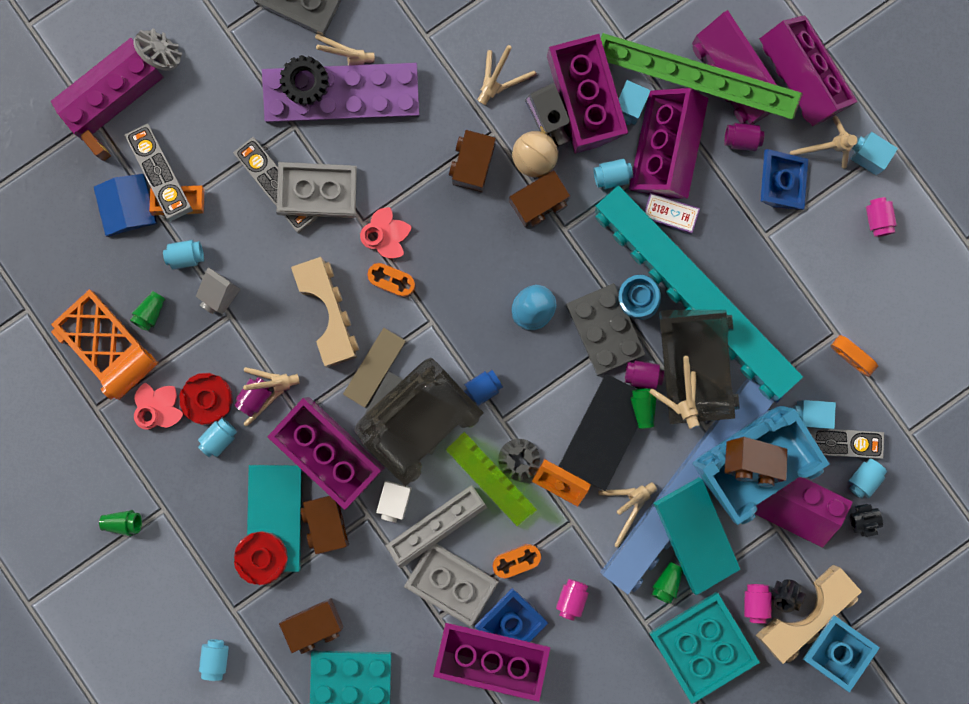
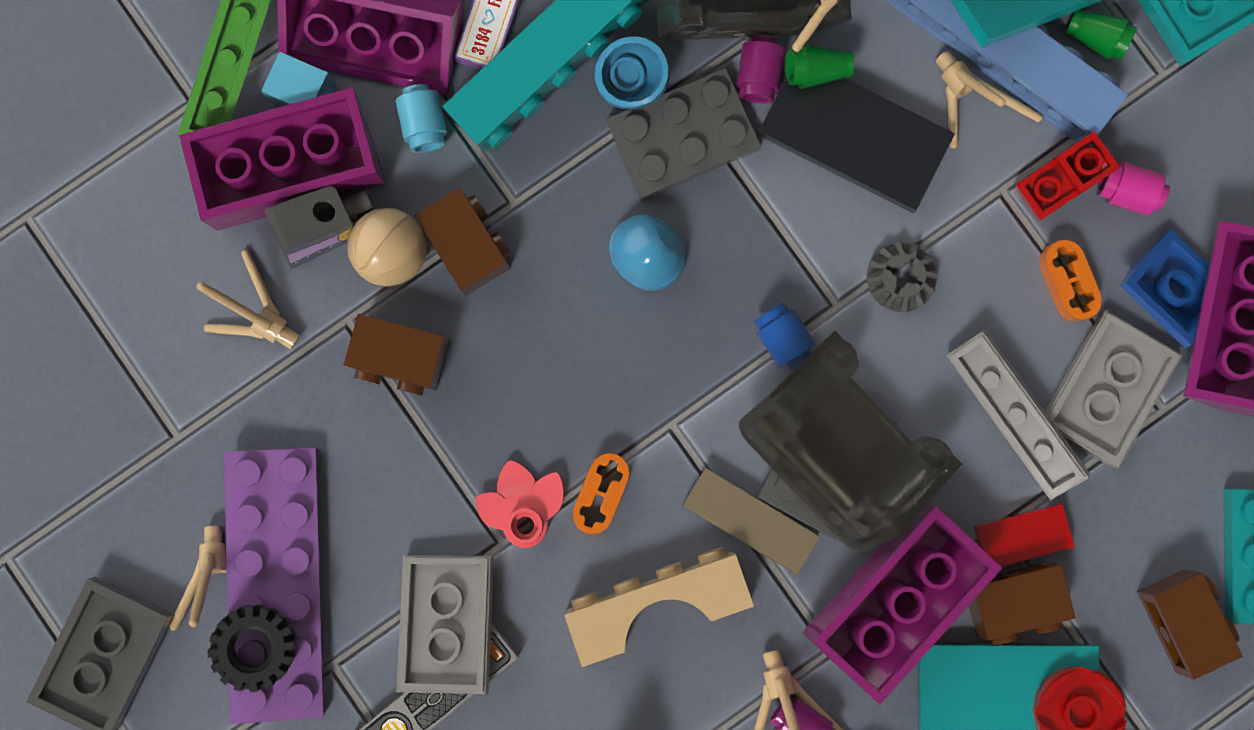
camera: 90 degrees left, 0 degrees up
(364, 529) = (1025, 535): none -> red tile
(393, 501) = (980, 486): white brick -> none
(491, 479) = (936, 323): clear neon green fence -> none
(561, 482) = (941, 206): orange plate -> none
(579, 558) = (1067, 176): none -> red slope

